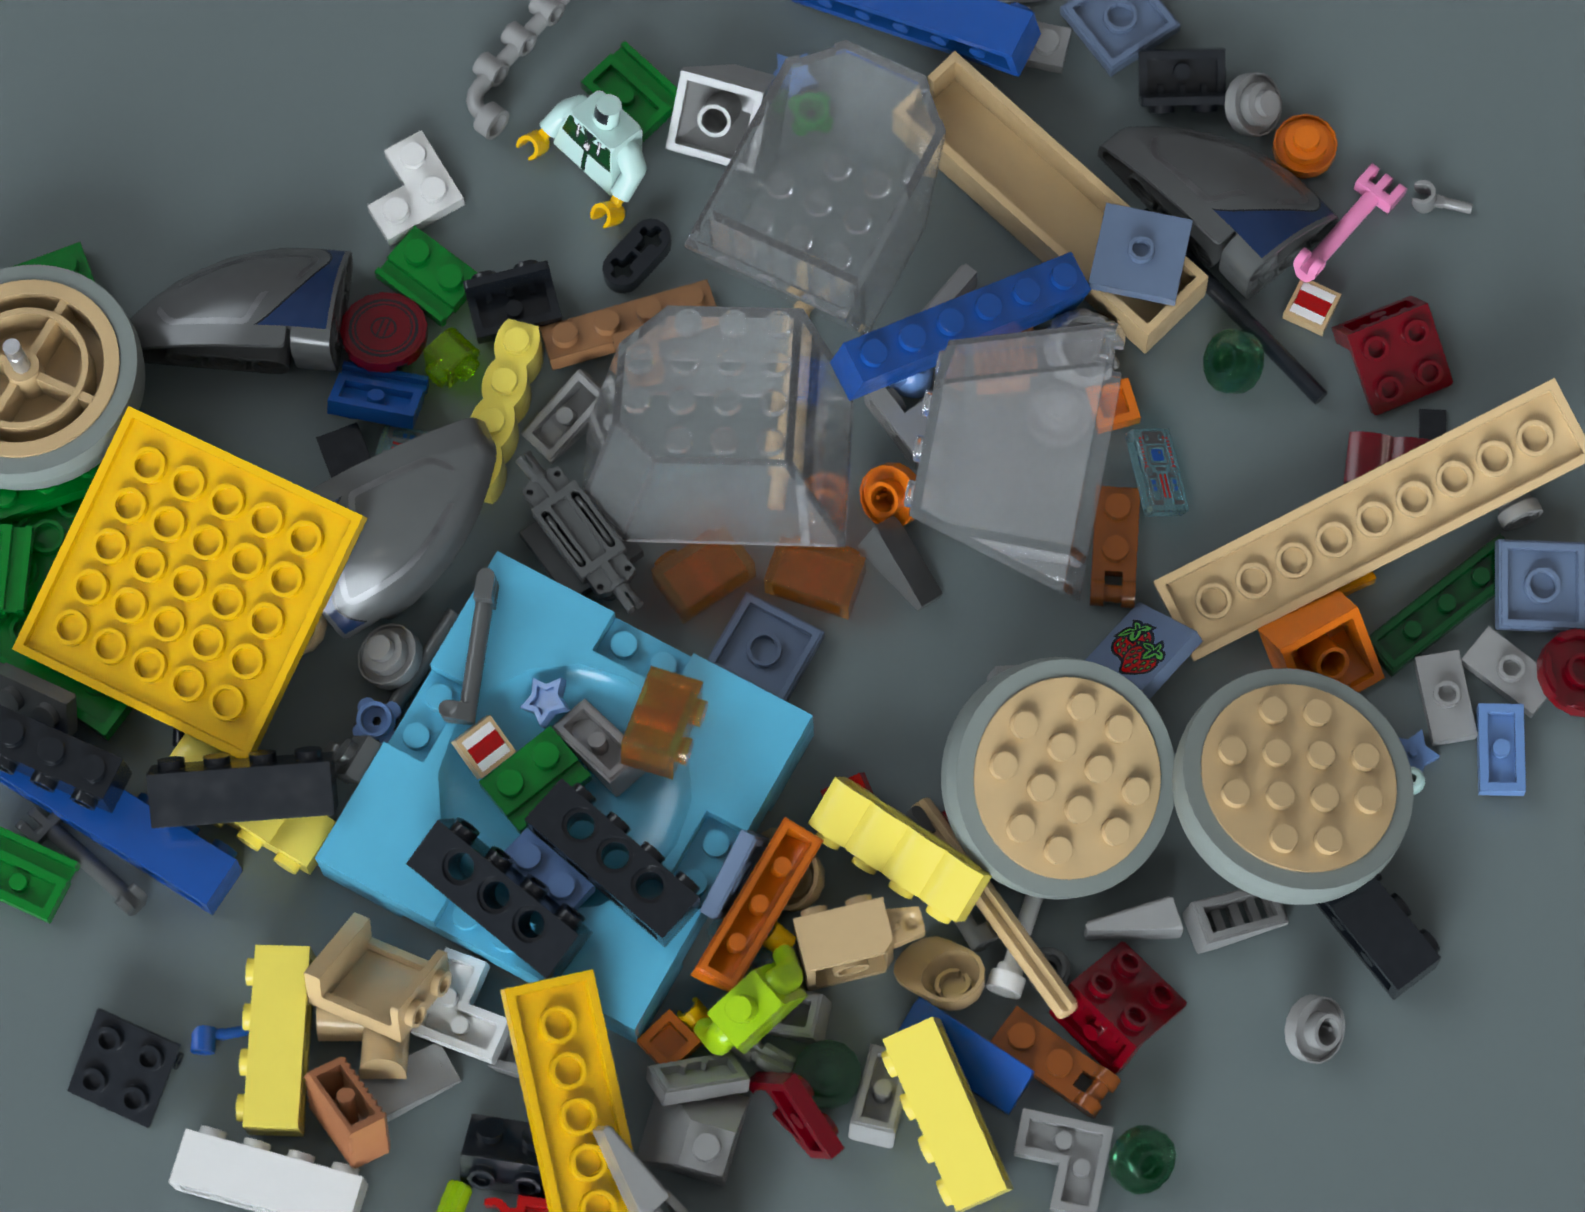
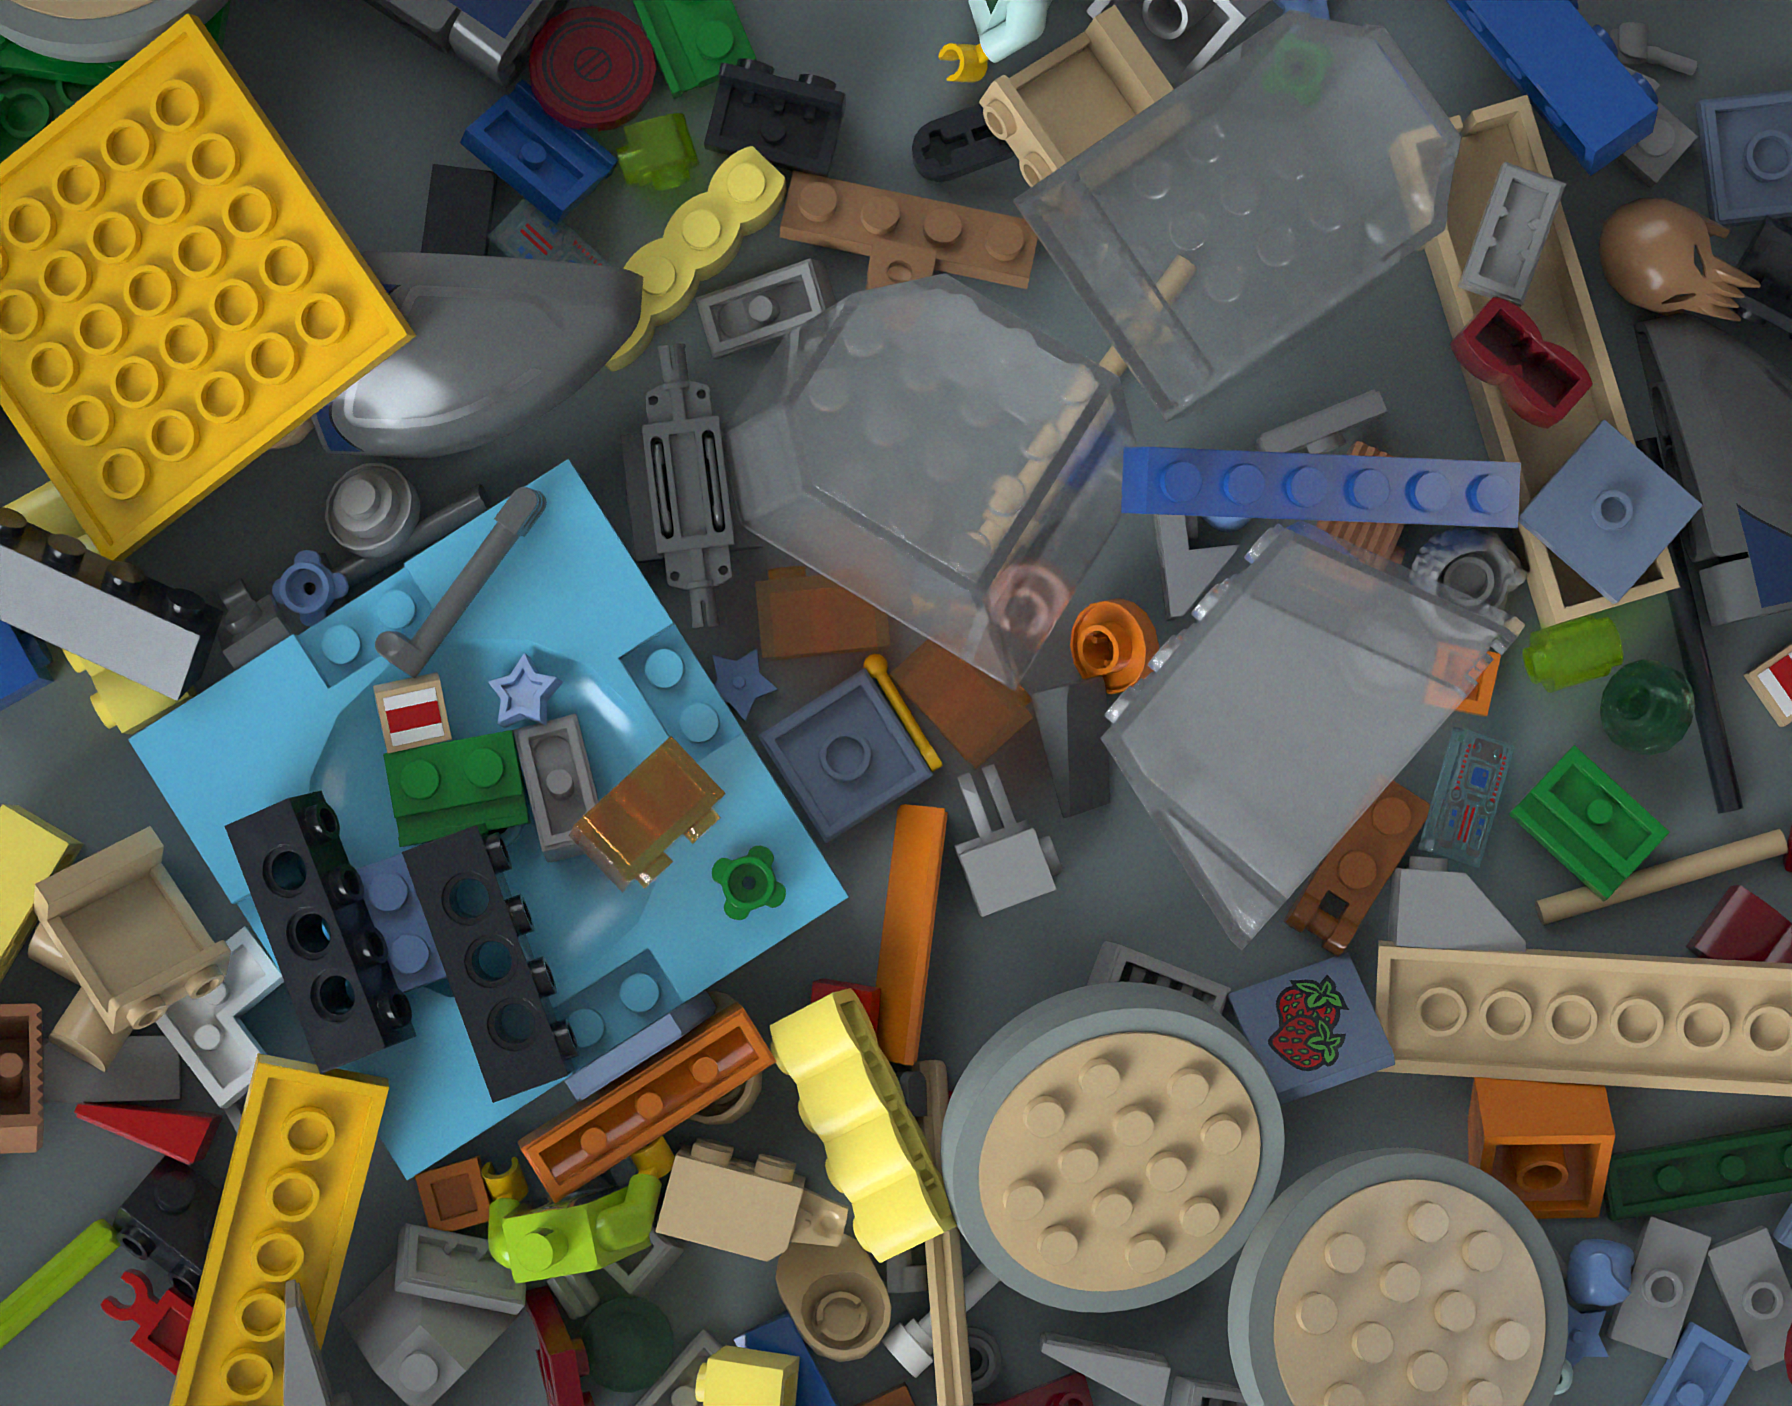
camera: 20 degrees right, 15 degrees up
(455, 1100) = (172, 1132): none -> red slope
(677, 637) = (741, 681): none -> medium blue piece
(680, 192) = (1073, 96): none -> tan panel
(746, 722) = (742, 900): none -> green plate
(754, 588) = (877, 668): none -> yellow hinge
(861, 726) = (909, 929): none -> orange slope
(897, 649) = (1005, 863): none -> light grey brick
(991, 129) = (1511, 234): none -> light grey plate
(1027, 192) = (1533, 375): none -> dark red brick
(1081, 103) = (1650, 260): none -> medium nougat helmet
(1171, 355) = (1573, 652): none -> clear neon green brick
(1180, 539) = (1445, 911): none -> light grey slope
(1239, 447) = (1589, 823): none -> green plate
(1302, 458) = (1665, 876): none -> tan bar
(1403, 704) = (1599, 1272): none -> medium blue piece

